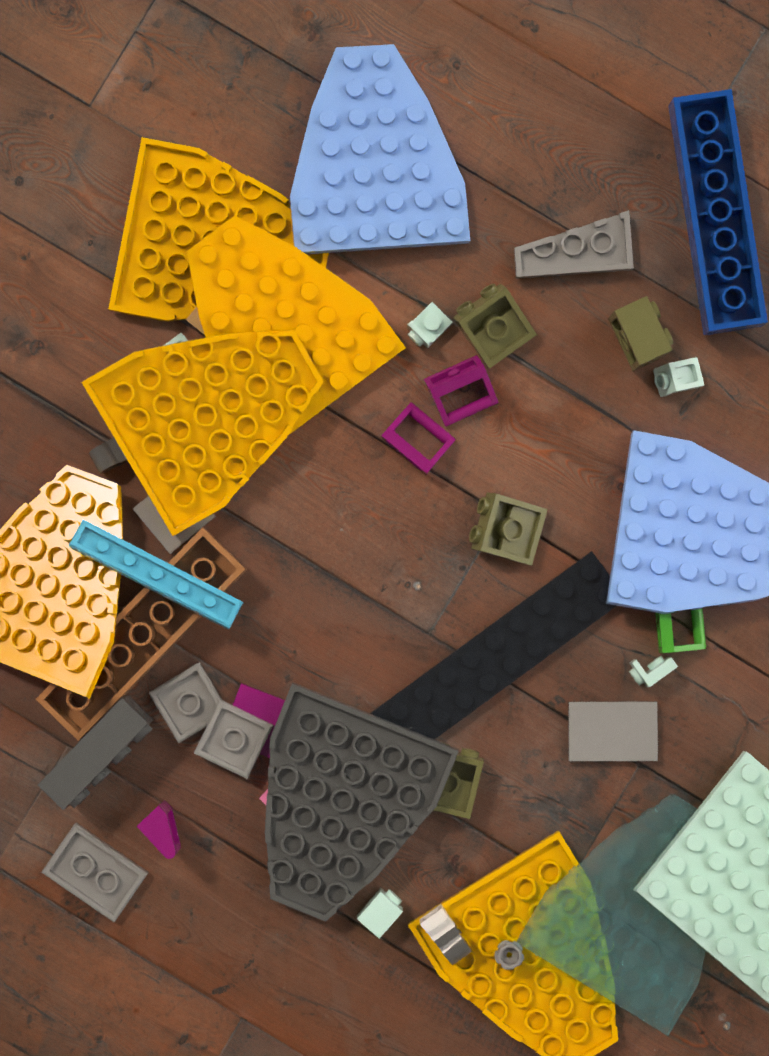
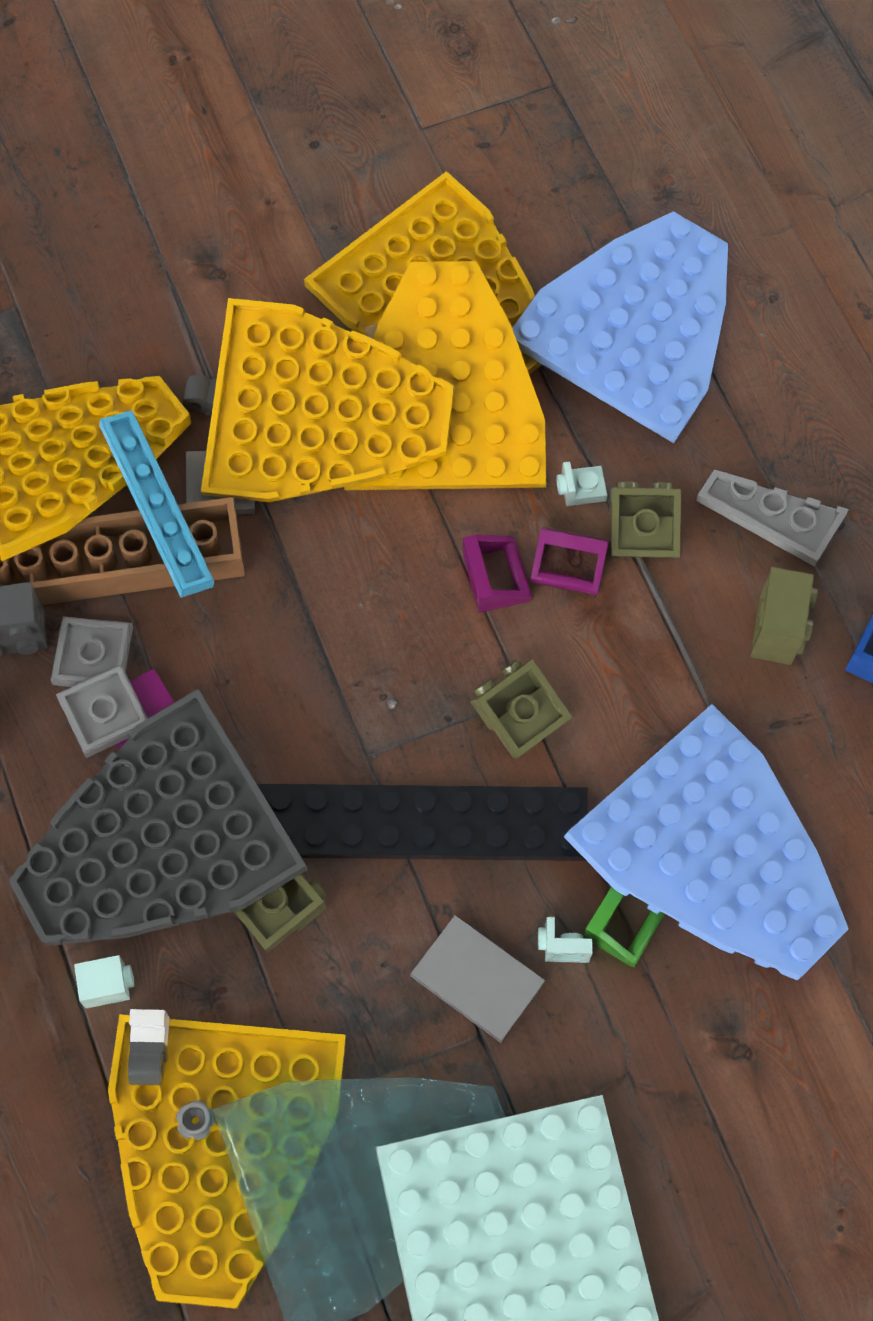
camera: 40 degrees right, 20 degrees down
(678, 376) = (793, 686): light aqua bracket -> none

